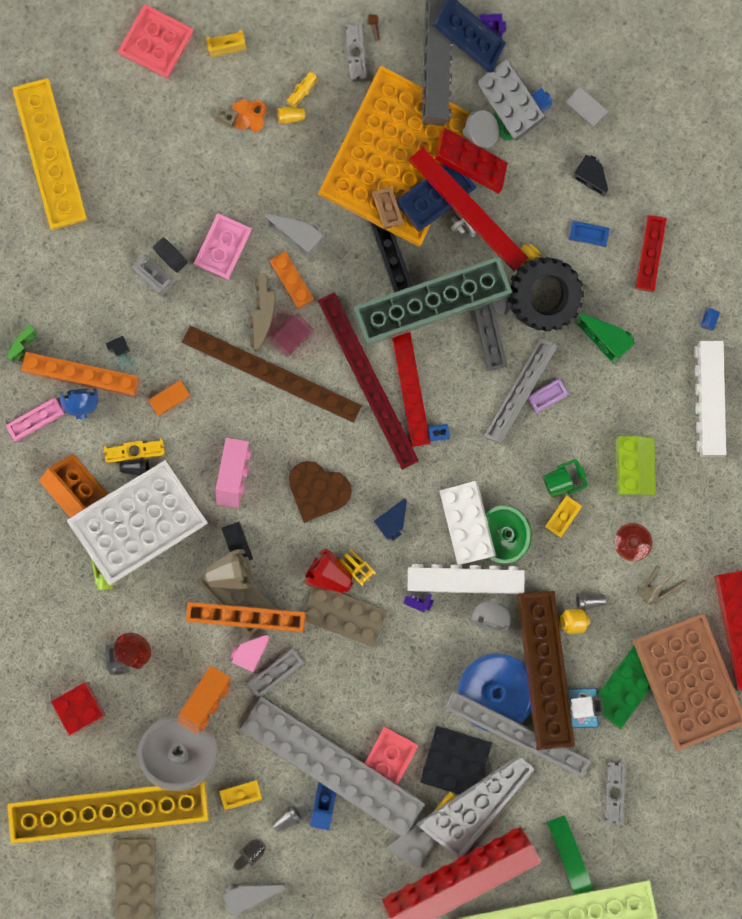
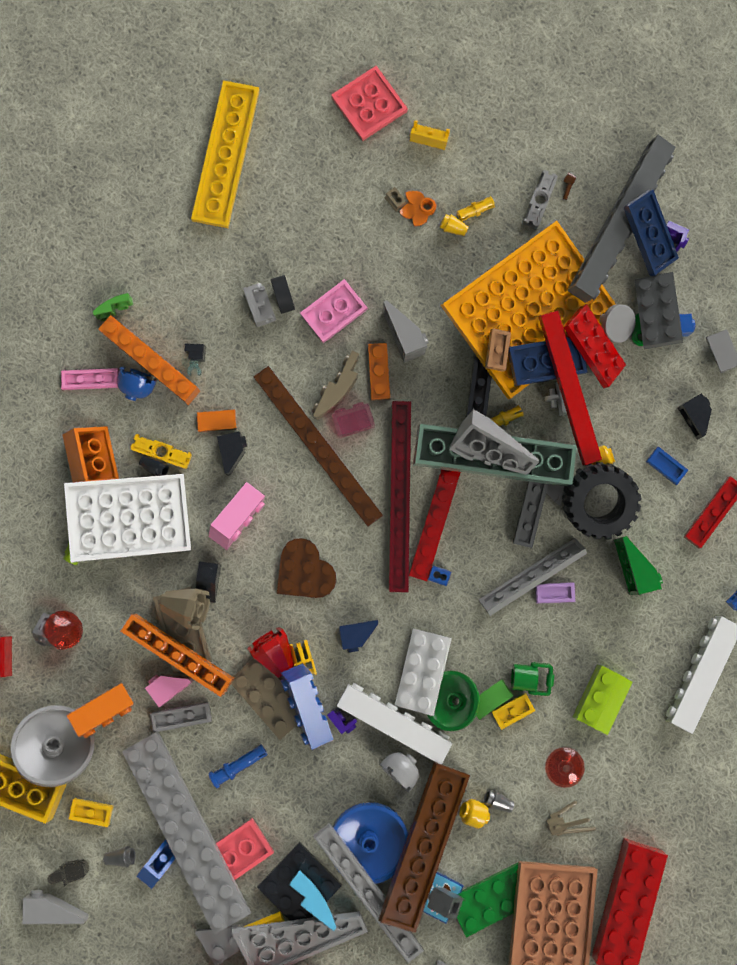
camera: 25 degrees right, 0 degrees up
(197, 416) = (232, 450): none -> black slope
(343, 696) = (230, 770): none -> blue pin
(381, 603) = (307, 706): none -> wedge
(419, 293) = (486, 441): none -> light grey wedge
(424, 265) = (508, 416): none -> yellow pin
(474, 763) = (313, 899): none -> medium azure slope
(540, 514) = (493, 698): none -> bright green slope

